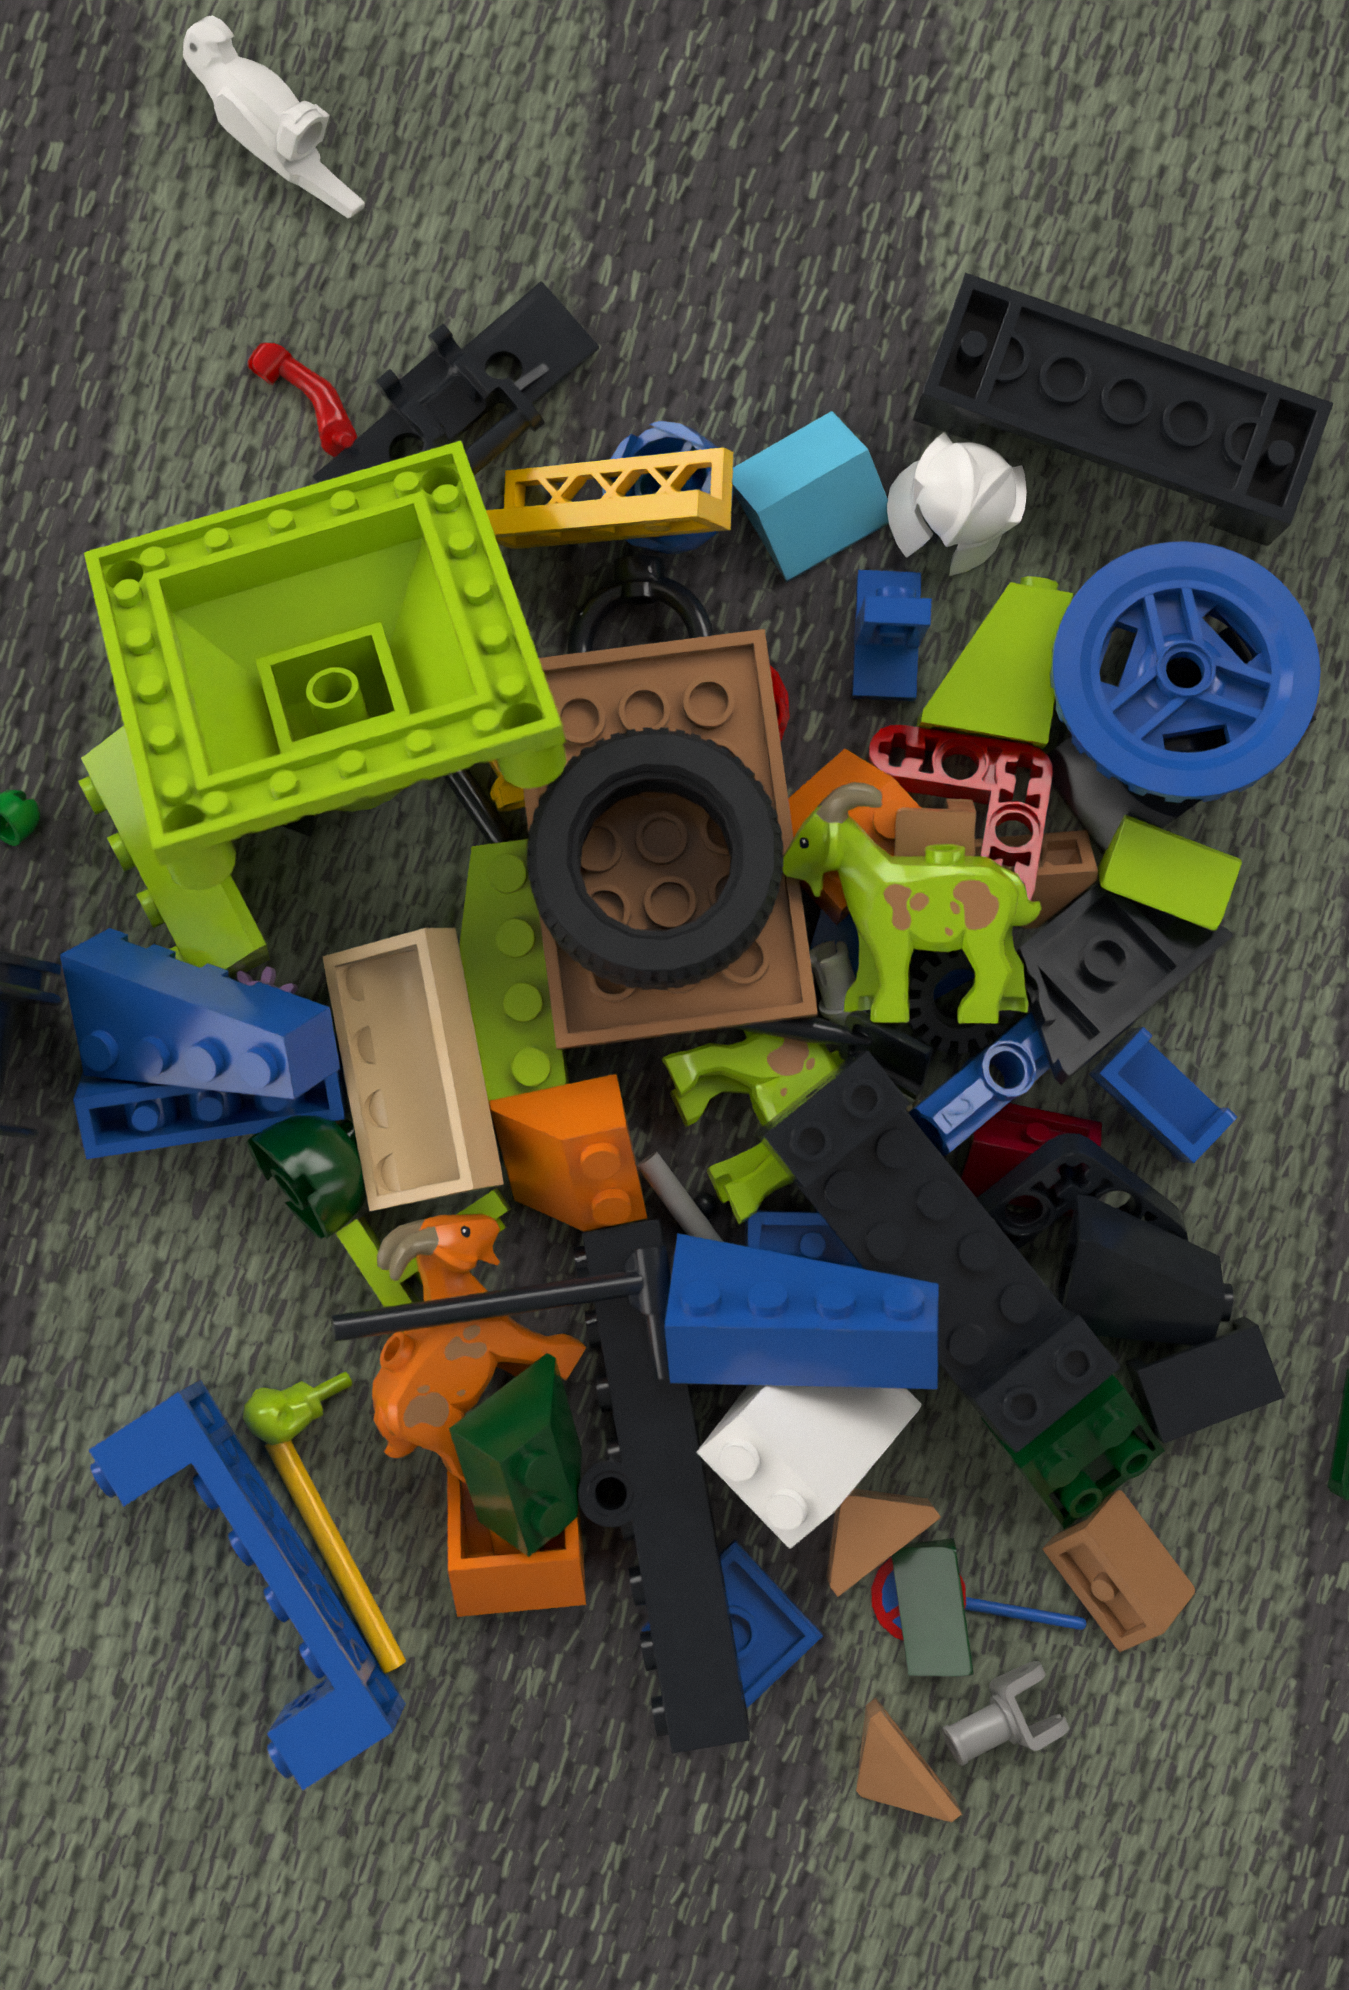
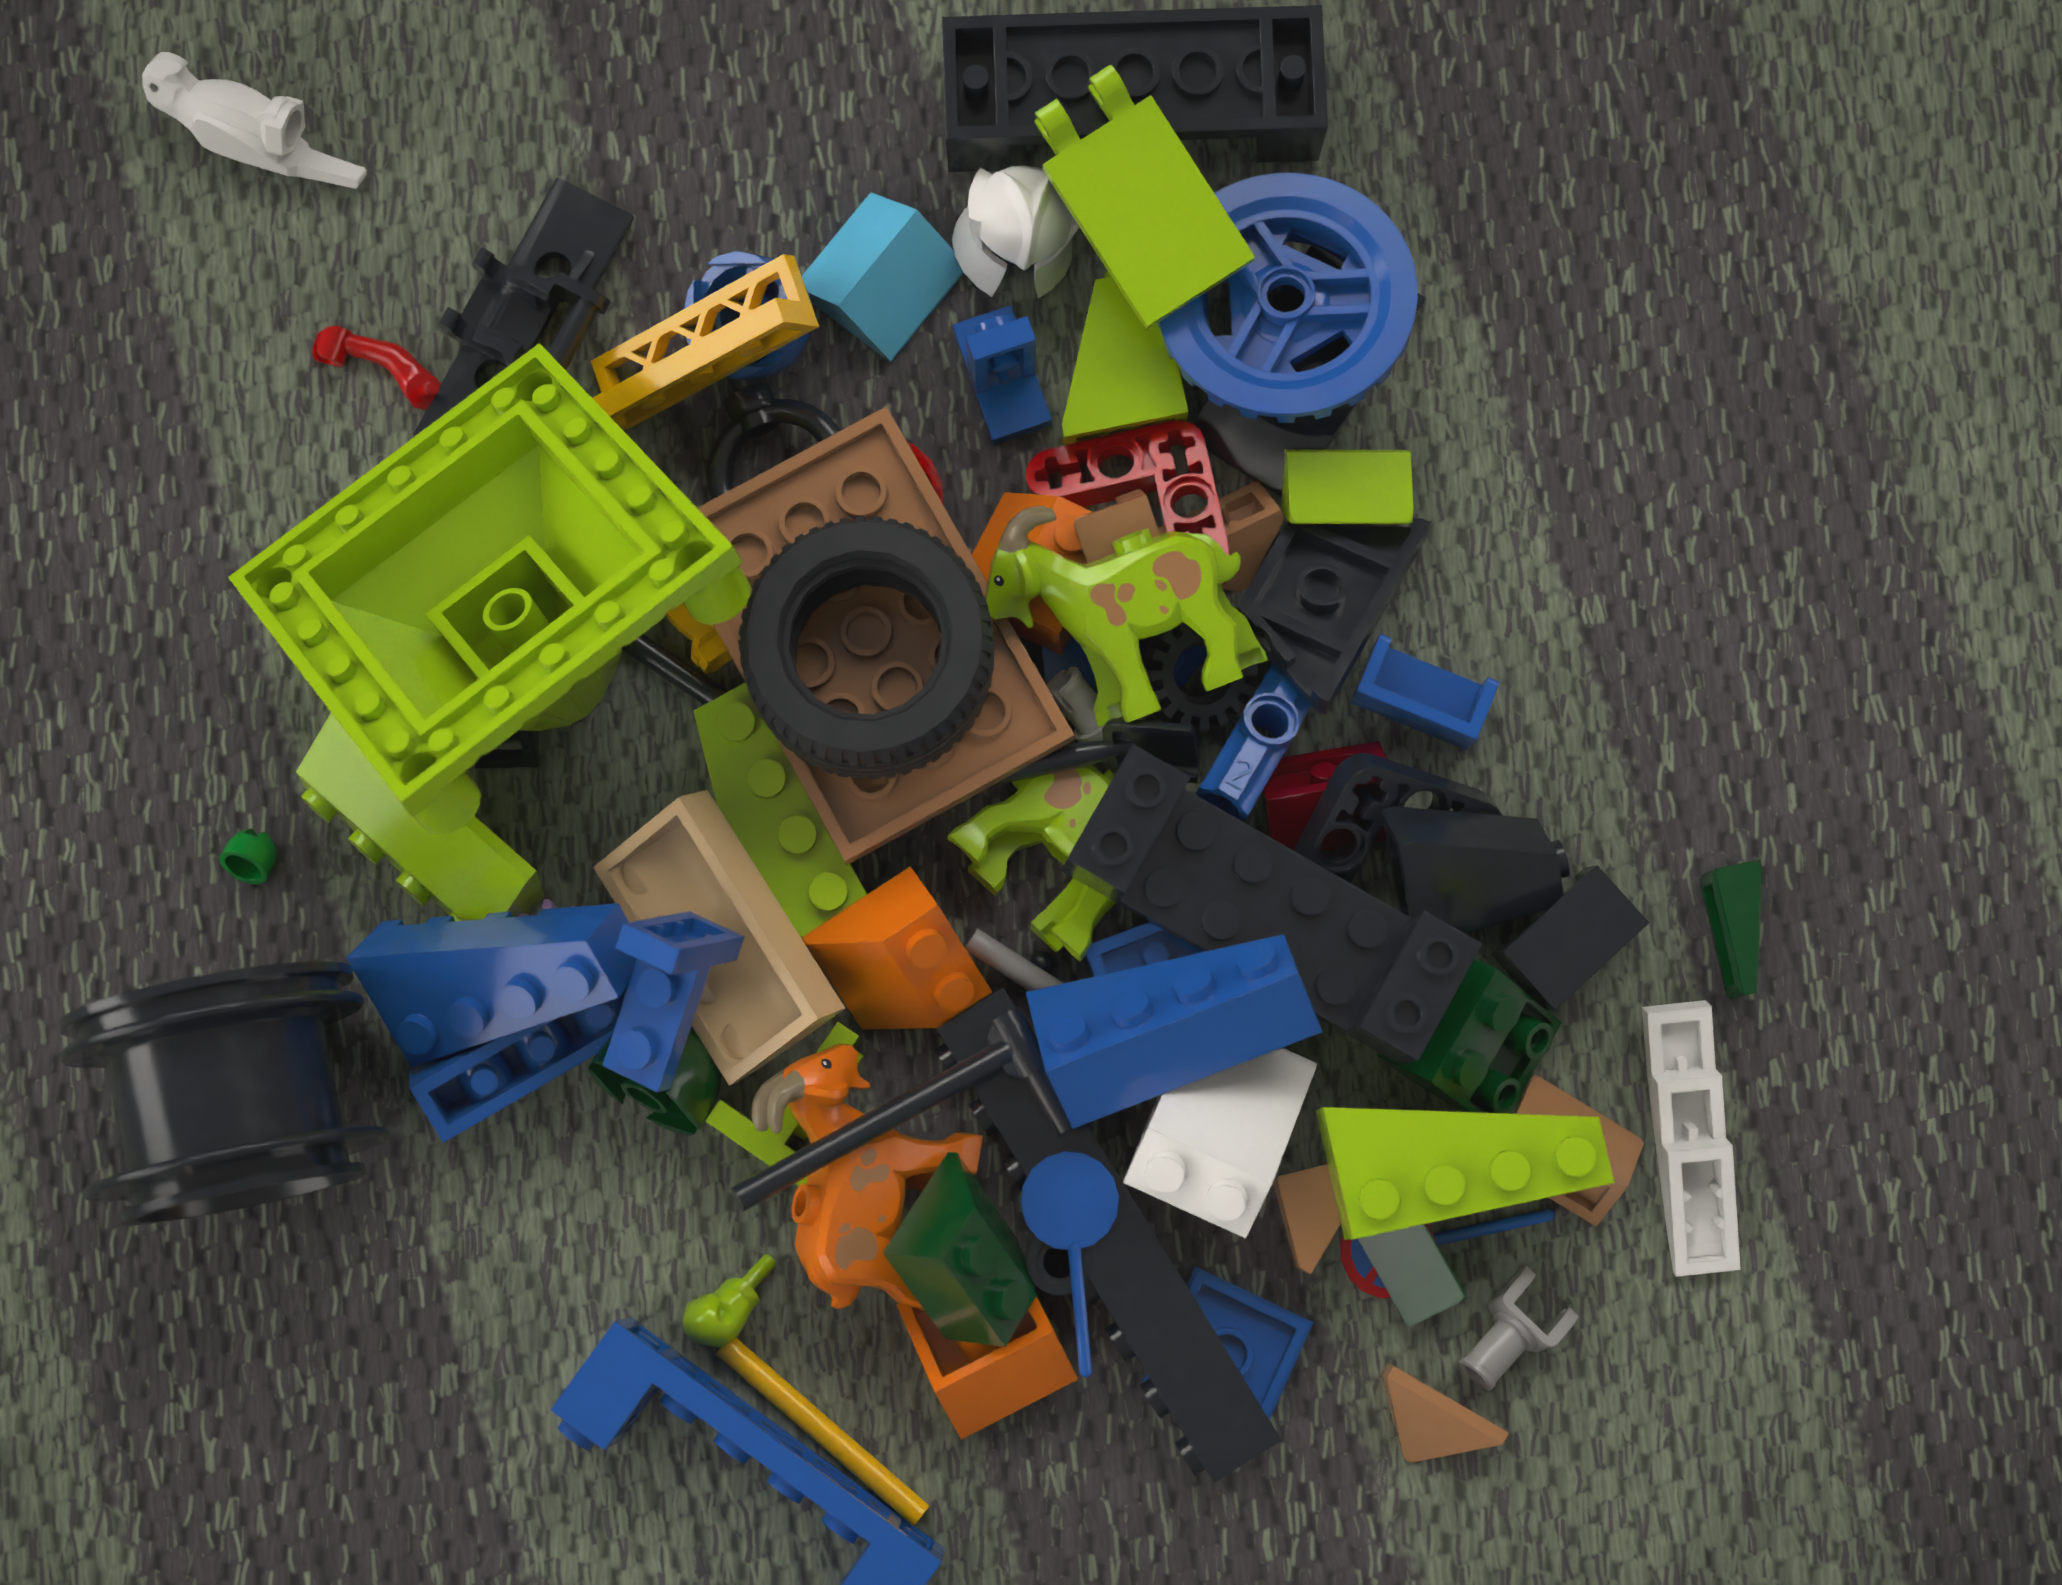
camera: 20 degrees left, 5 degrees down
(343, 1104) = (664, 992): none -> blue bracket
(641, 1448) = (1071, 1206): none -> blue piece
(998, 1552) = (1441, 1165): none -> lime wedge
(1084, 528) = (1141, 202): none -> lime tile
(1241, 1606) = (1691, 1138): none -> white slope

